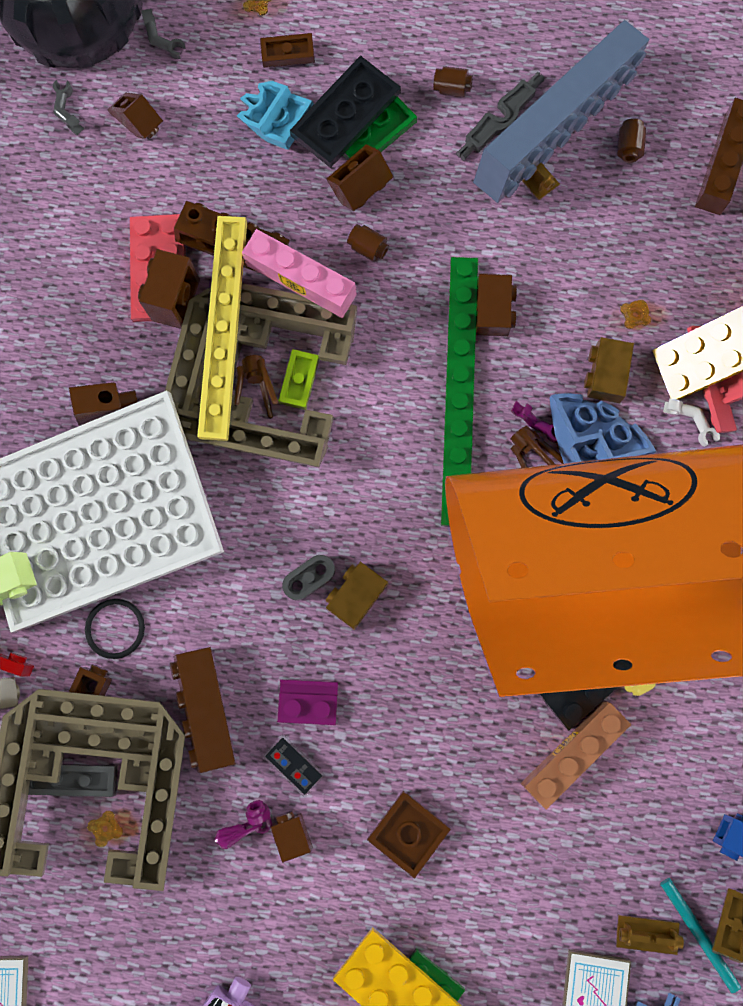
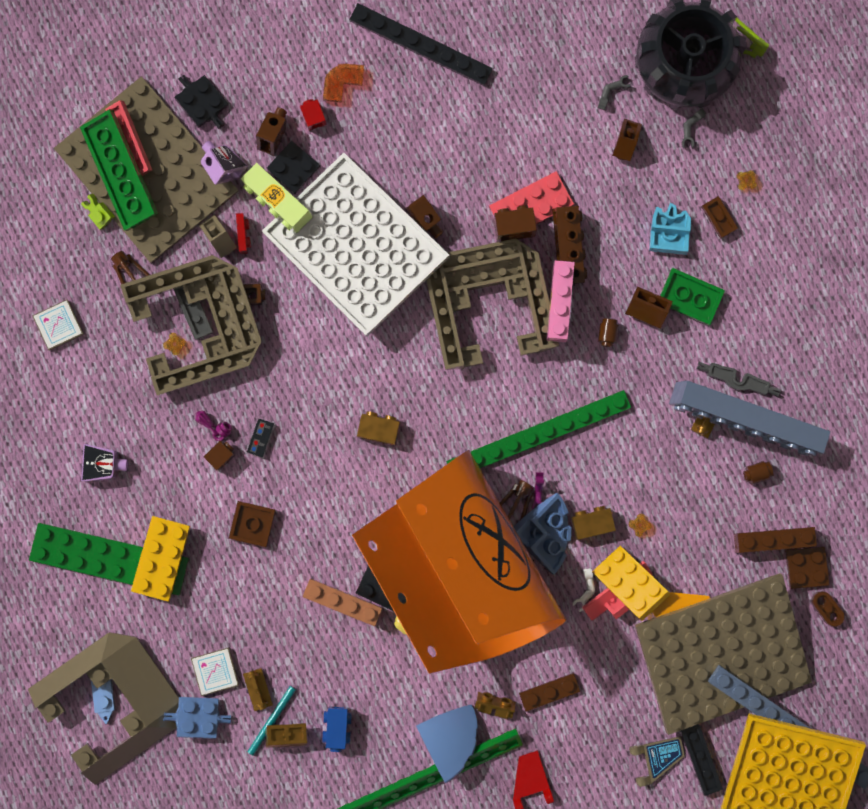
camera: 55 degrees right, 5 degrees up
(140, 633) = (292, 308): black tyre -> none
(203, 710) = (268, 369): reddish brown brick -> none
(222, 329) = (505, 269): light yellow plate -> none
(255, 372) = (489, 300): reddish brown plant -> none
(299, 379) = (498, 330): lime plate -> none
(307, 702) = (301, 429): magenta plate -> none
(310, 579) = (376, 394): dark grey plate -> none
(345, 111) = (689, 277): black plate -> none
(452, 81) = (747, 336): reddish brown brick -> none
(494, 305) = (603, 431): reddish brown brick -> none

